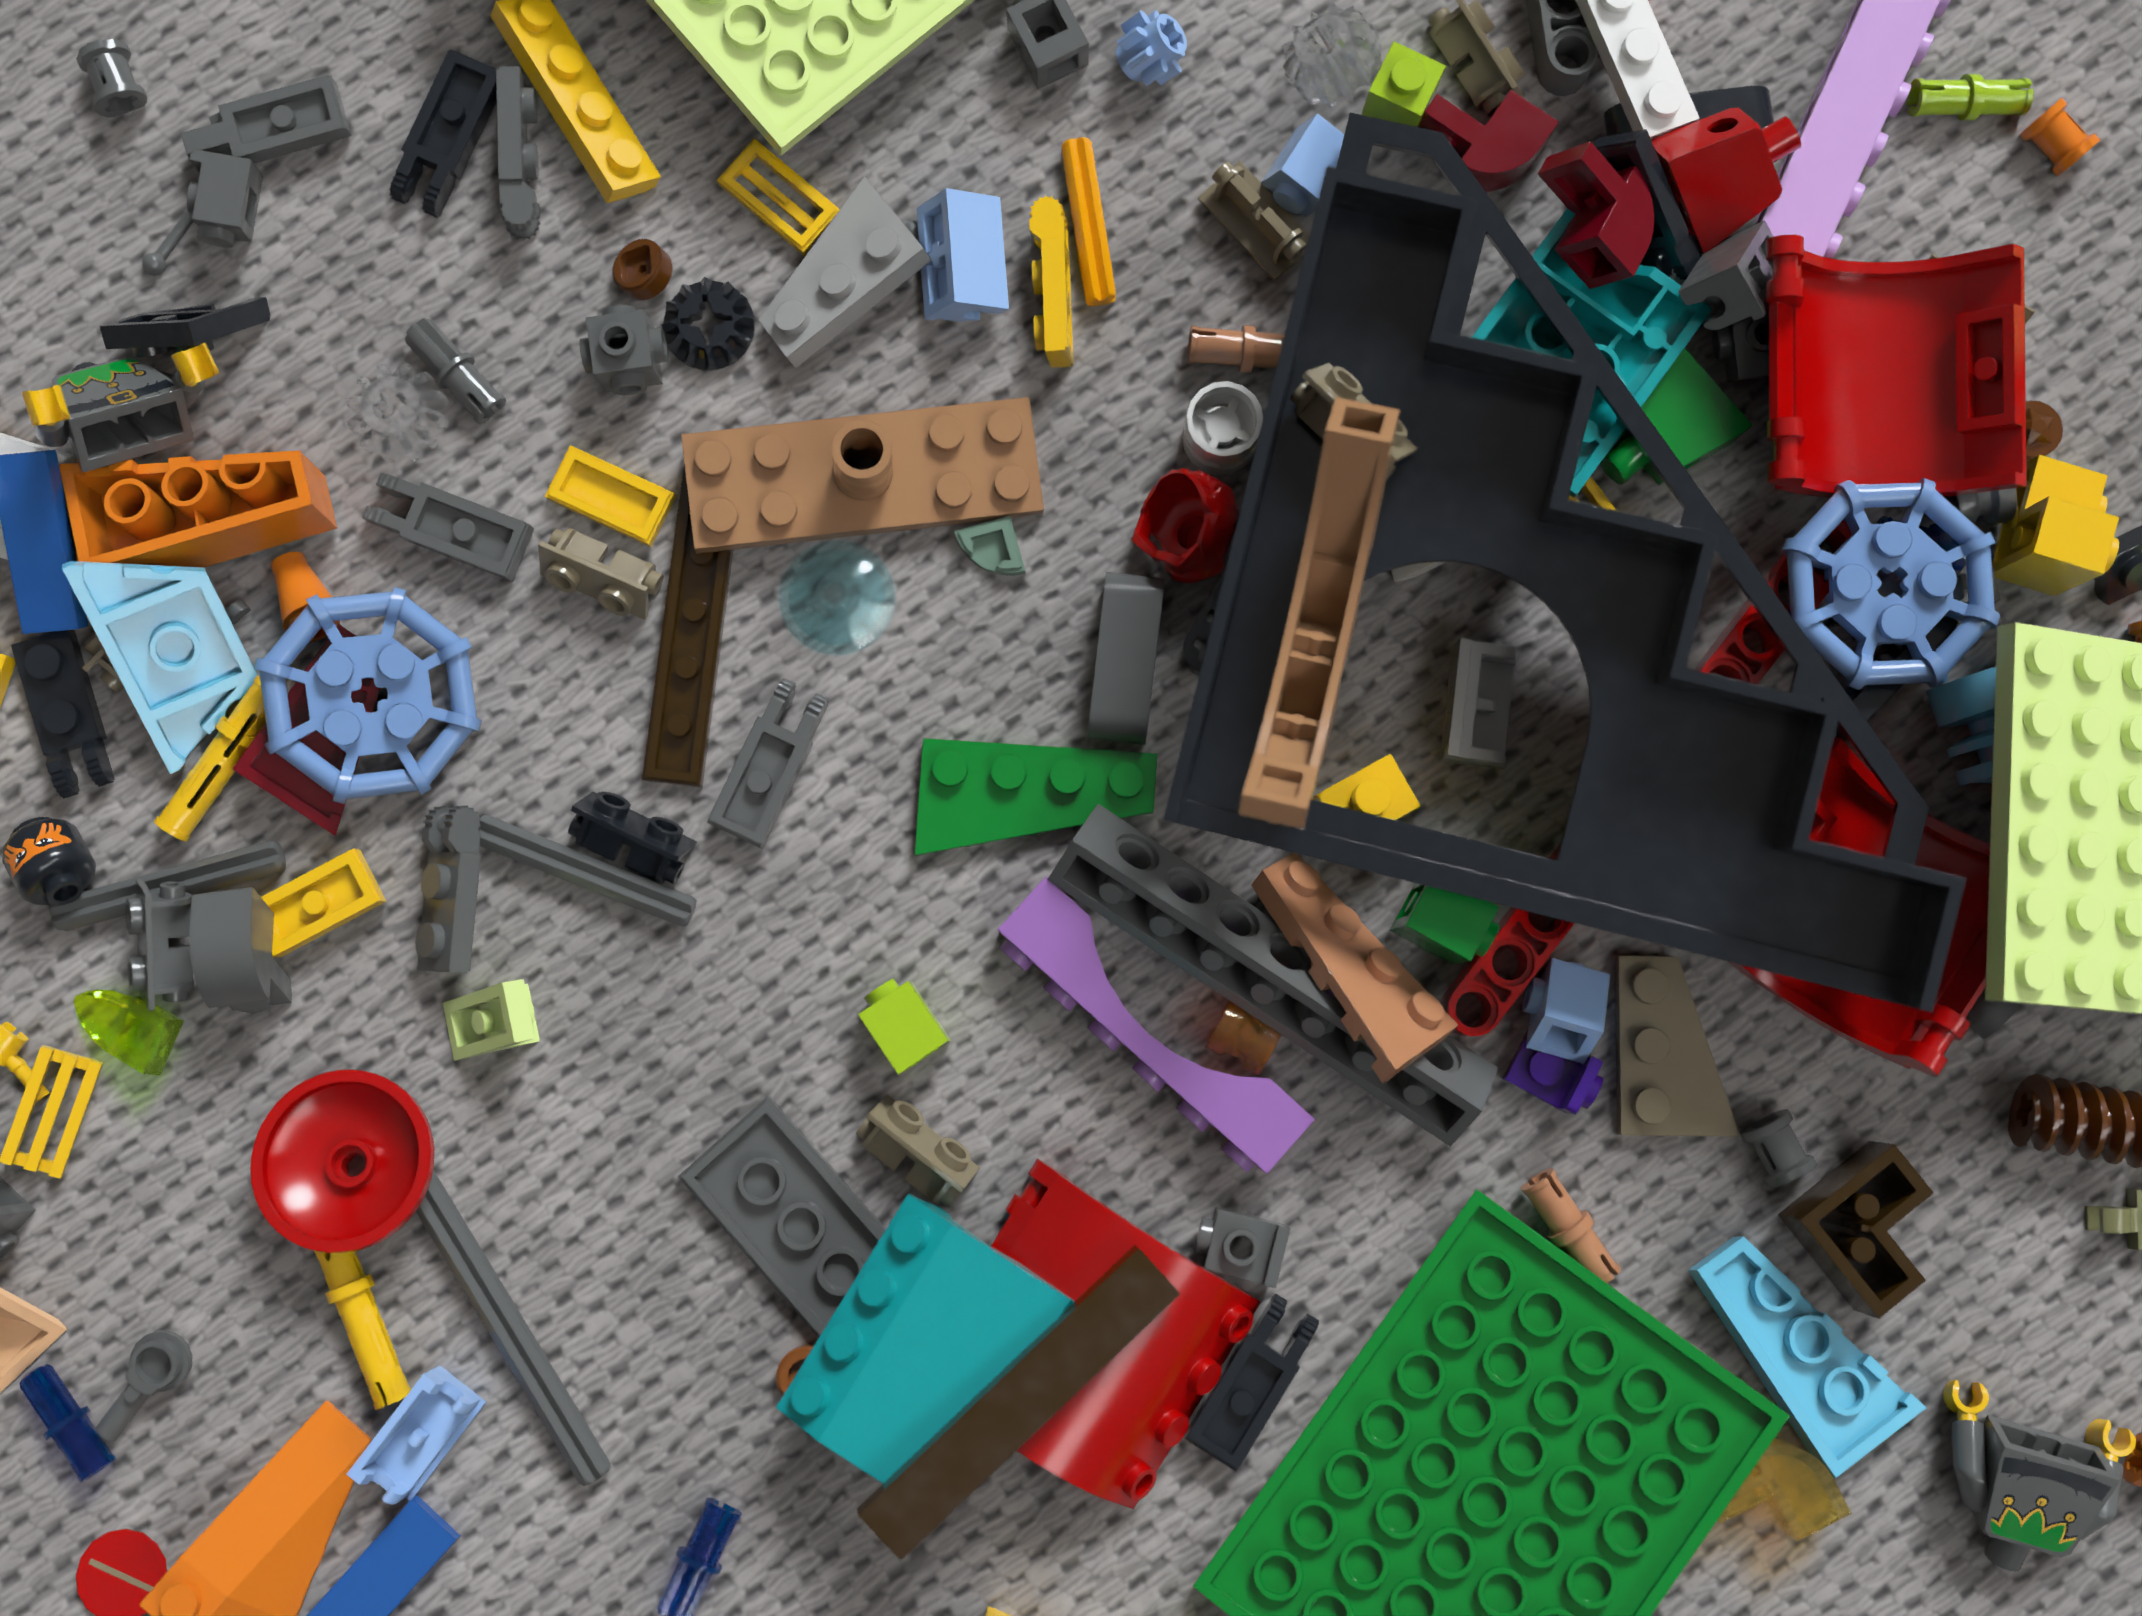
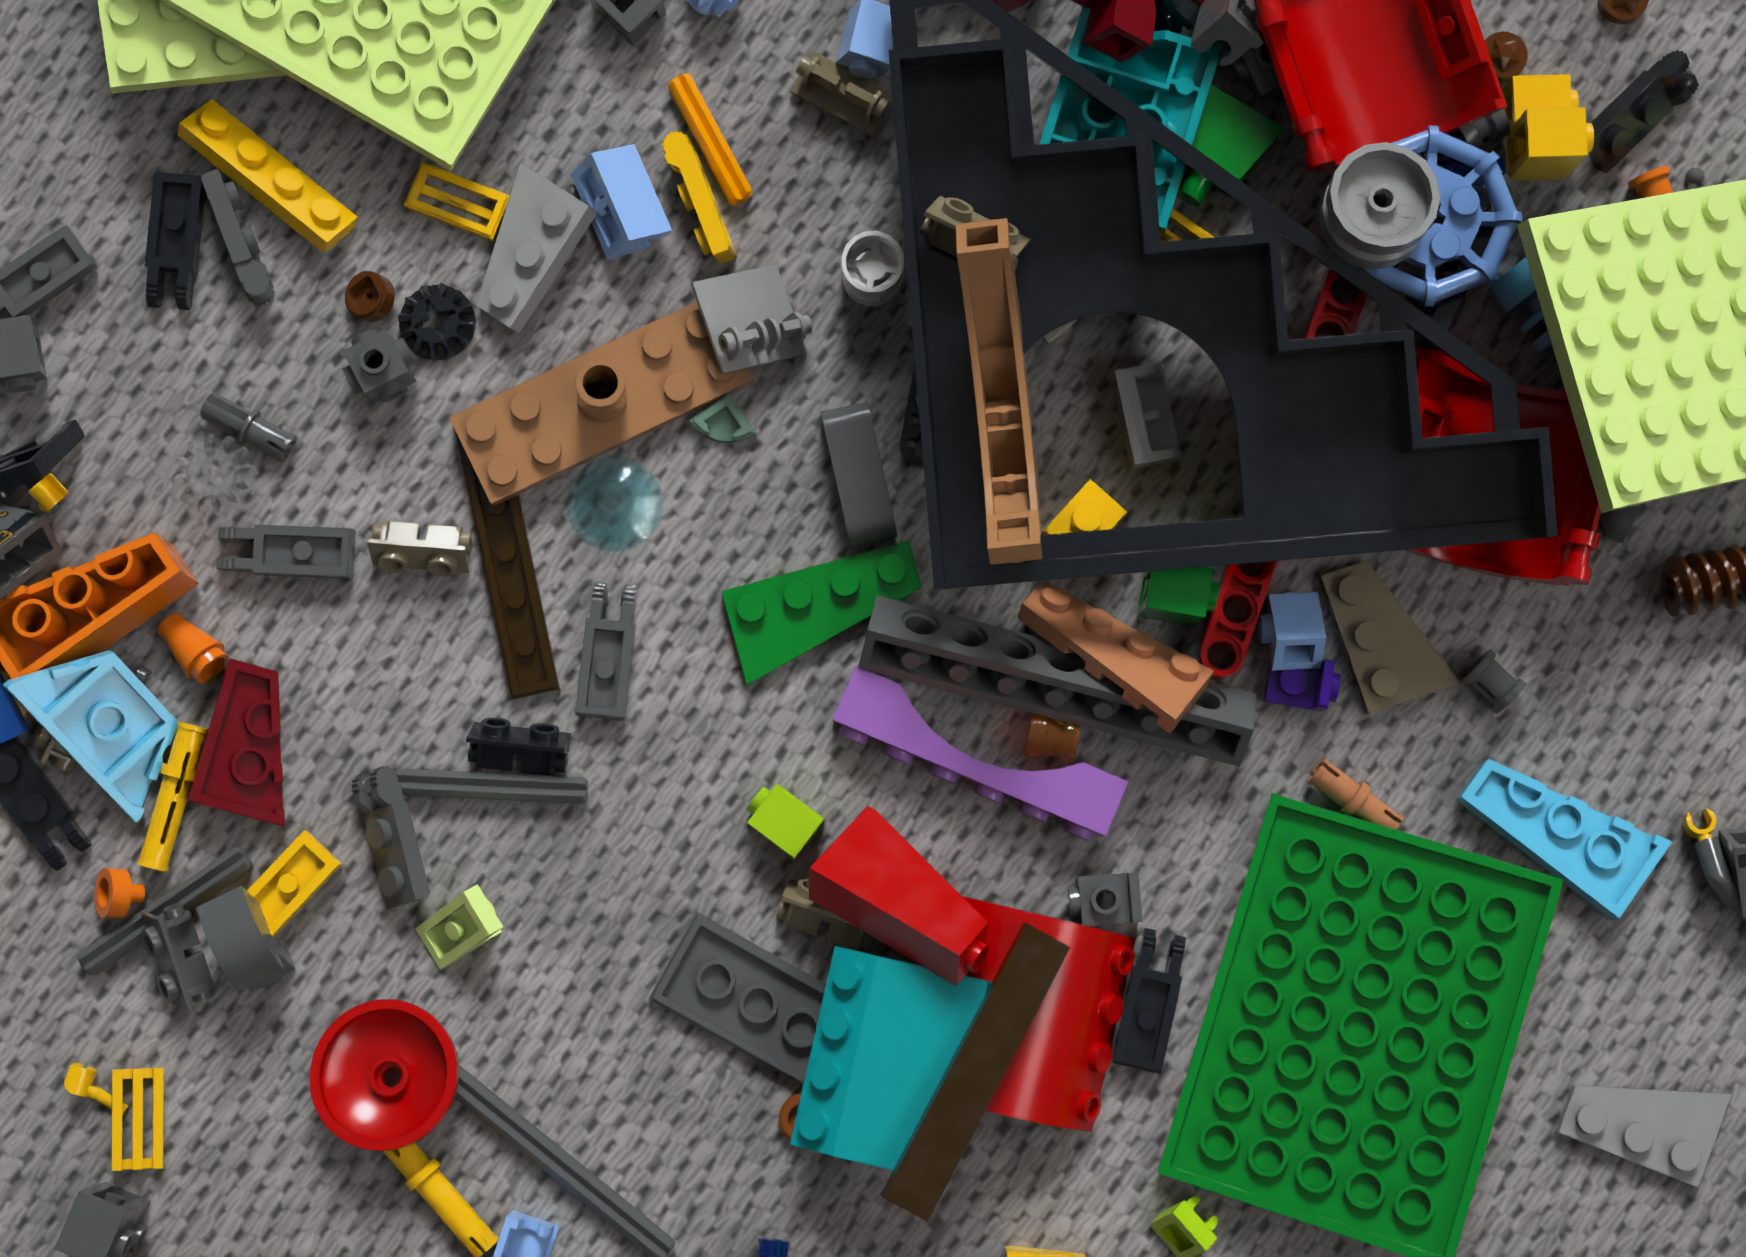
camera: 20 degrees left, 0 degrees up
(46, 859) = (65, 923): black head -> none
(119, 845) = (115, 893): none -> orange tile
(128, 1029) = (174, 1032): clear neon green plate -> none
(341, 672) = (247, 695): medium blue plate -> none
(610, 496) = (407, 484): yellow tile -> none
(1001, 1165) = (898, 898): none -> red slope
(1063, 439) = (750, 318): none -> light grey hinge
(1193, 522) = (875, 350): red hair -> none
(1234, 347) = (861, 200): nougat pin -> none
(1795, 1489) = (1589, 935): clear yellow brick -> none
(1839, 549) = (1378, 205): none -> light grey wheel
(1847, 1223) = (1562, 720): dark brown brick -> none

